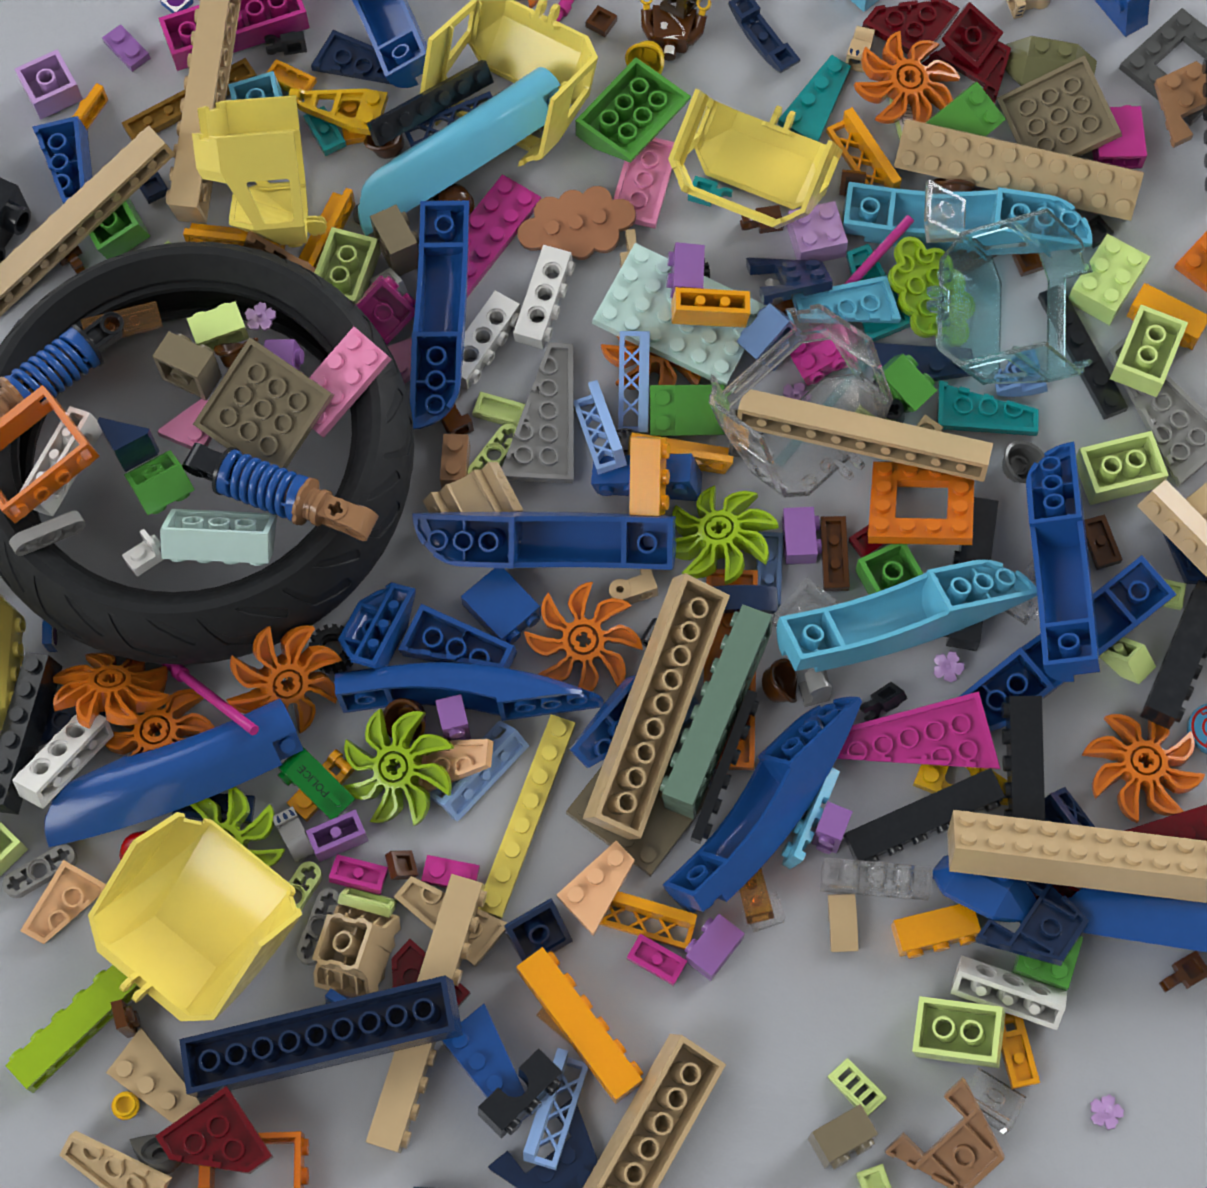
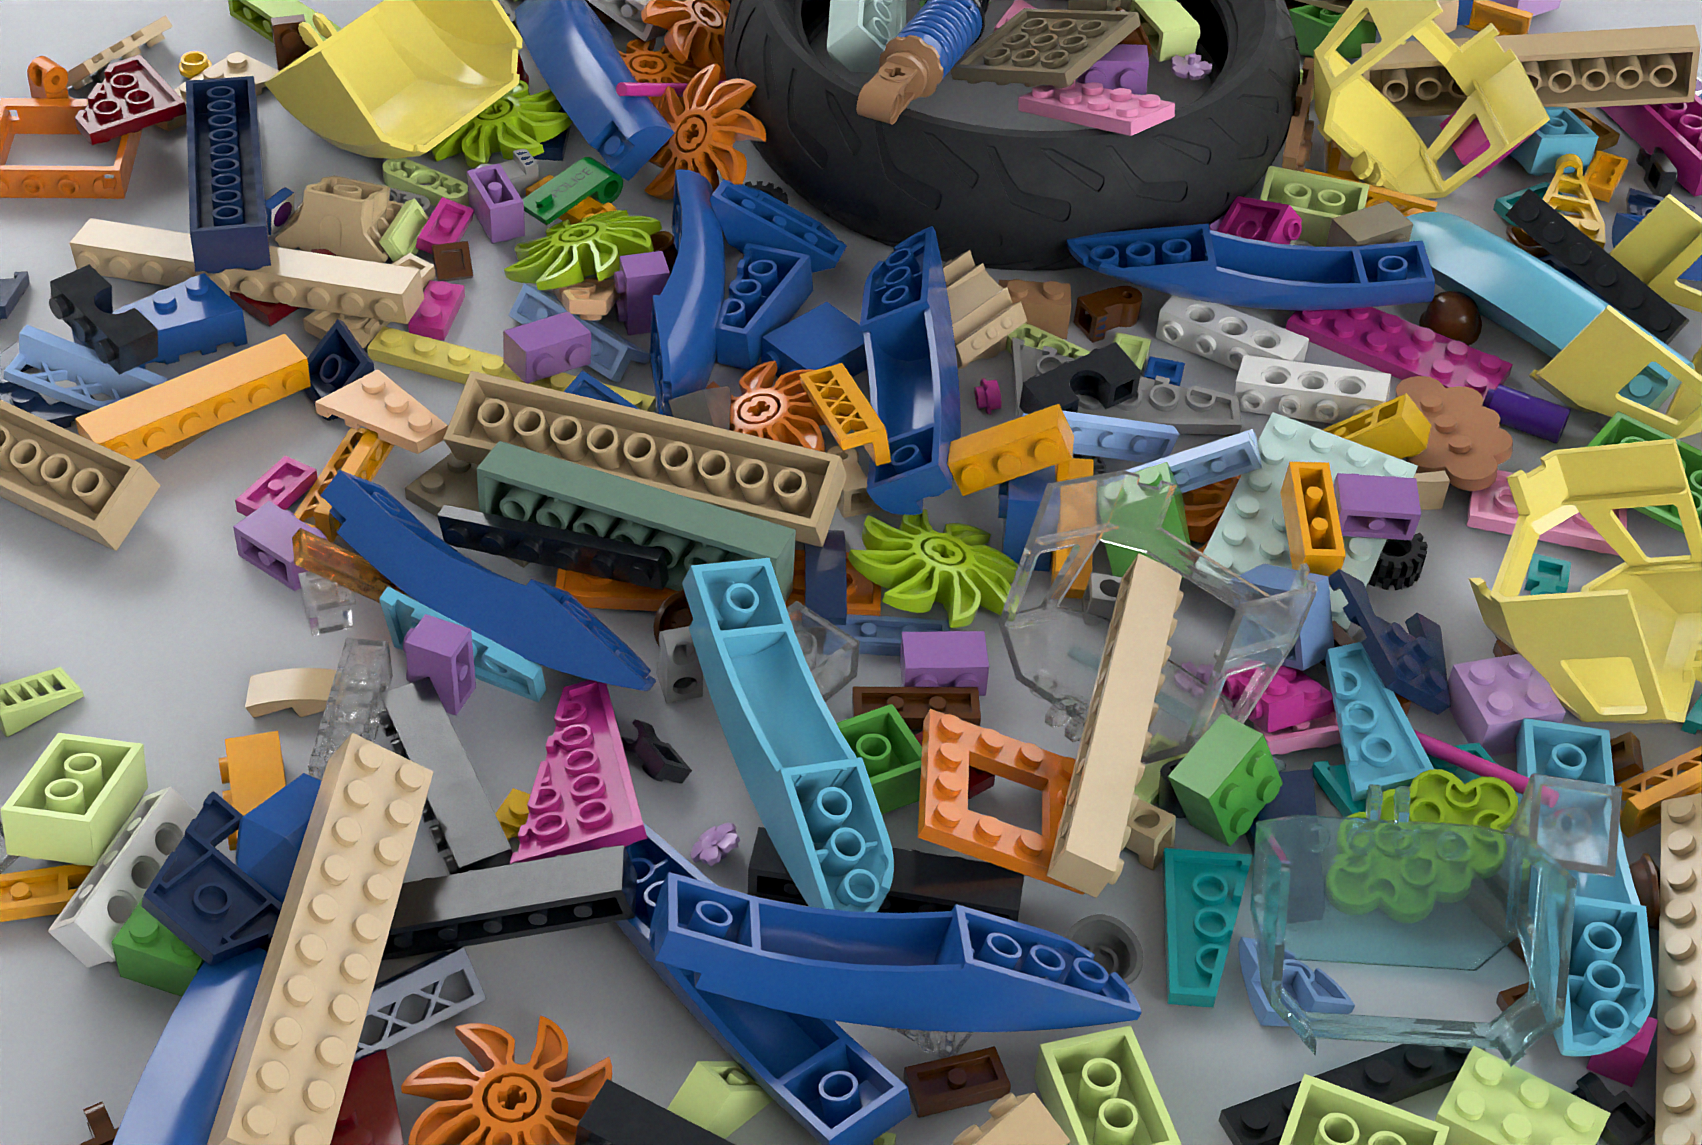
camera: 85 degrees right, 25 degrees down
(513, 387) = (1165, 368): none -> blue tile
(520, 783) = (547, 347): none -> medium lavender brick
(542, 498) = (988, 395): none -> dark pink plate
(554, 173) = (1528, 413): none -> dark purple brick
(564, 454) = (1102, 374): none -> black arch
(590, 674) = (704, 407): none -> dark grey slope
(591, 269) = (1391, 428): none -> yellow slope
(600, 573) = (861, 416): none -> light orange fence

